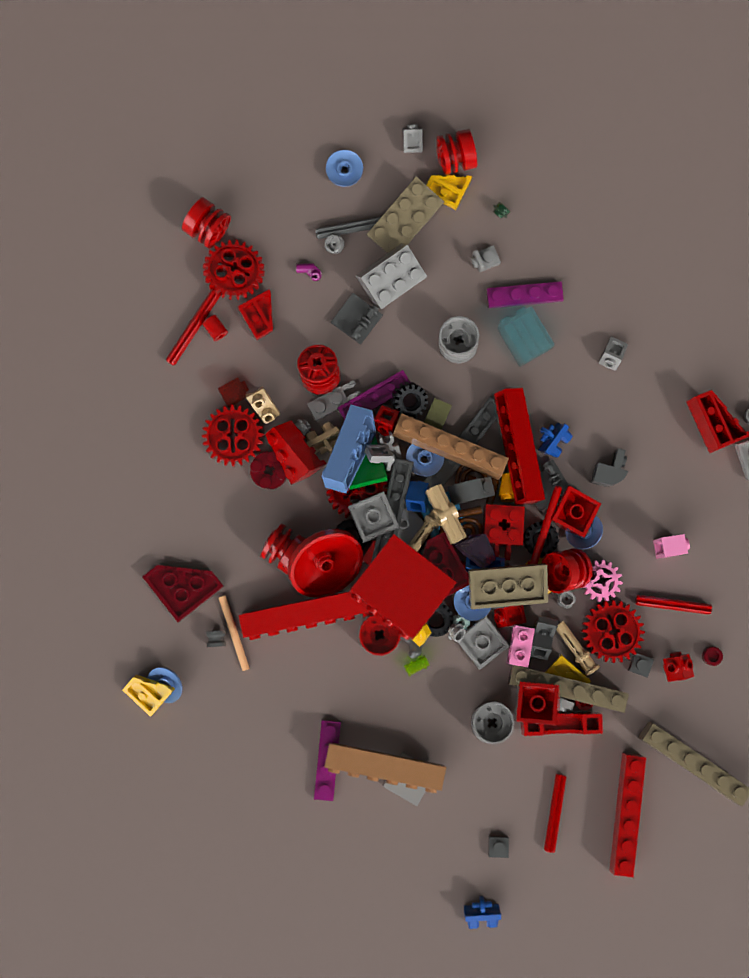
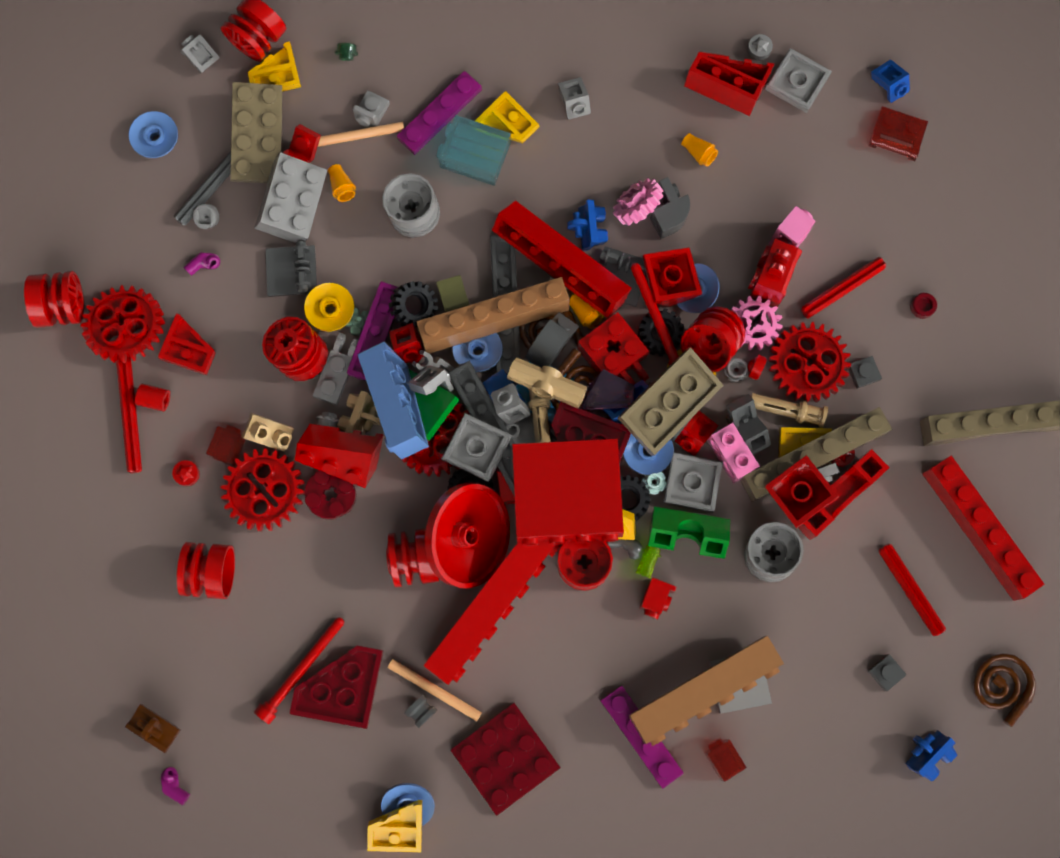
camera: 35 degrees left, 5 degrees down
(45, 560) = (171, 787): none -> magenta arm
(61, 520) = (153, 728): none -> reddish brown hips
(132, 564) = (268, 709): none -> red piece
(160, 452) = (206, 570): none -> red wheel
(197, 388) = (186, 473): none -> red tile
(240, 706) = (505, 759): none -> dark red plate
(360, 350) = (321, 298): none -> yellow dish
(362, 813) = (724, 759): none -> clear red brick
(369, 380) = (357, 321): none -> sand green plant
(403, 690) = (657, 598): none -> red brick
(413, 507) = (509, 405): none -> light grey bracket
(426, 248) = (303, 144): none -> red bracket
(428, 293) = (341, 185): none -> light orange cone
(456, 632) = (659, 493): light grey plate -> none
(464, 267) = (361, 134): none -> light nougat bar
(465, 677) = (707, 531): none -> green arch
(559, 908) = (999, 681): none -> reddish brown piece
(562, 332) = (509, 117): none -> yellow wing
(579, 607) = (756, 367): none -> red tile
(594, 450) = (638, 201): none -> bright pink gear
(640, 561) = (774, 272): none -> red hinge
(661, 449) = (700, 149): none -> light orange cone
(678, 667) = (902, 342): red brick -> none

